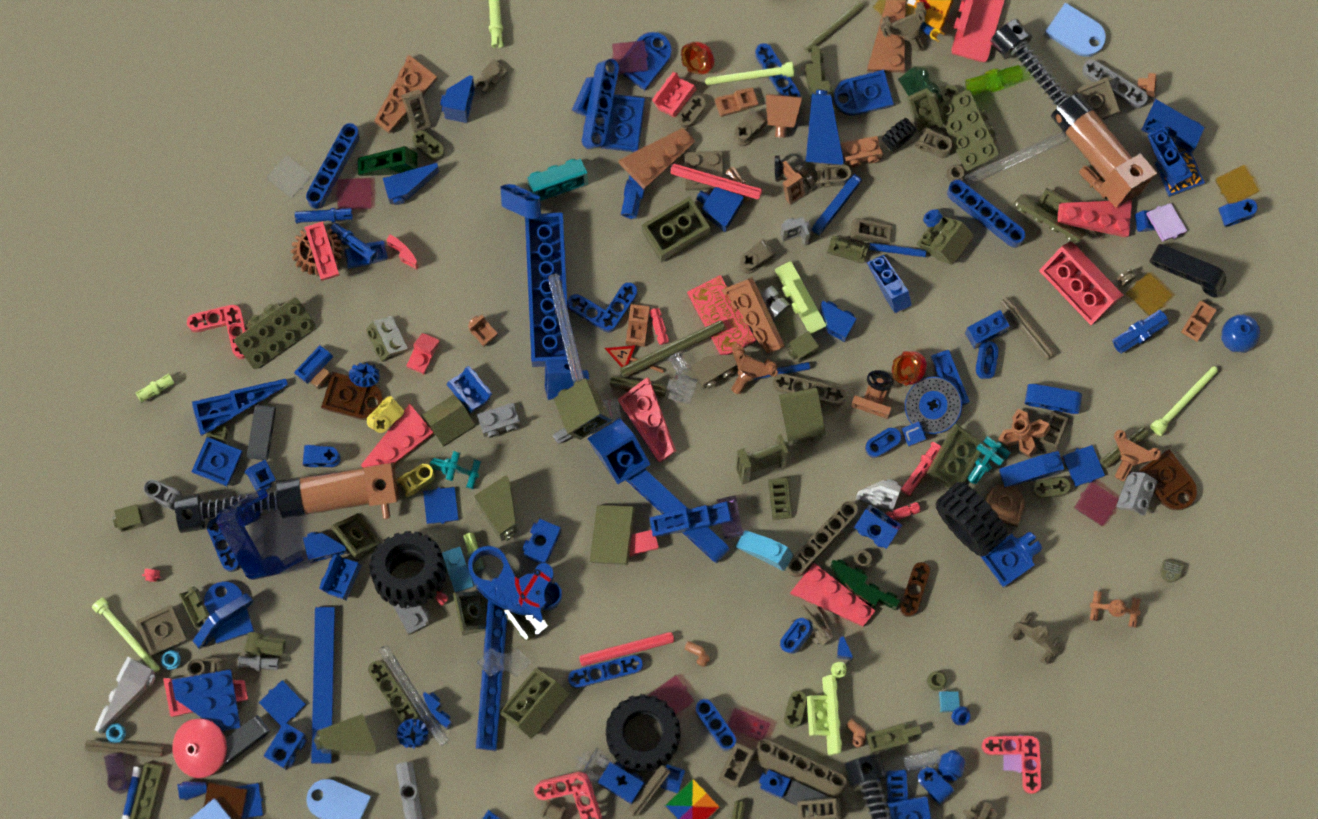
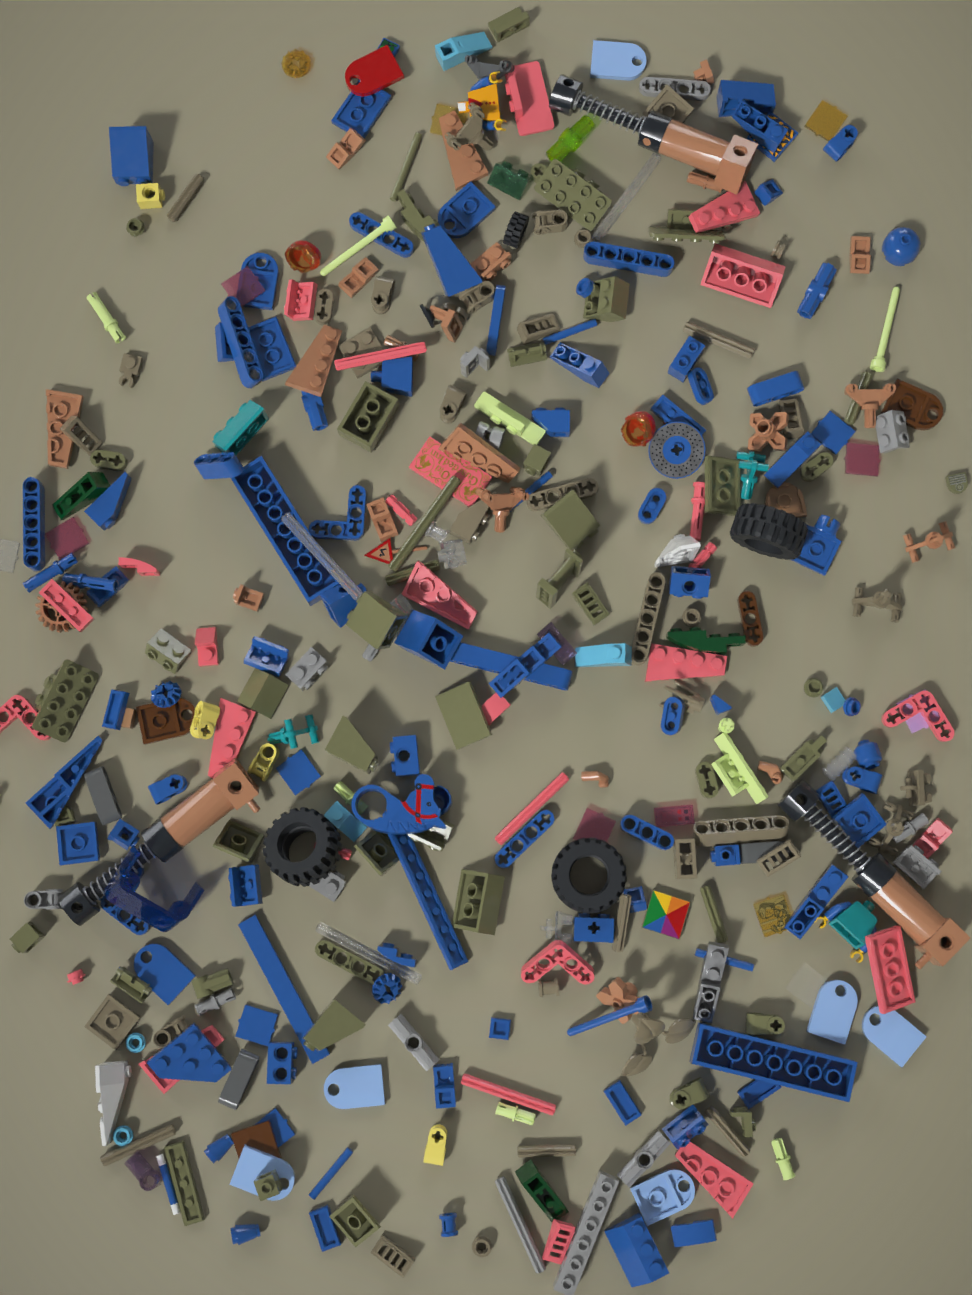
camera: 25 degrees left, 5 degrees up
(101, 607) = (47, 1030): yellowish green piece -> none
(208, 745) = (211, 1101): coral dish -> none
(220, 616) = (156, 989): blue beam -> none
(322, 547) = (214, 868): blue slope -> none
(458, 100) = (113, 405): blue slope -> none
(512, 662) = (424, 885): clear tile -> none
(782, 112) = (404, 264): nougat torso -> none
(875, 395) = (621, 468): nougat piece -> none
(914, 433) = (674, 484): blue tile -> none
(925, 109) = (526, 195): olive bracket -> none
(1149, 294) = (804, 254): clear yellow piece -> none
(1166, 222) = (785, 184): lavender piece -> none
(1190, 268) = (828, 213): black beam -> none

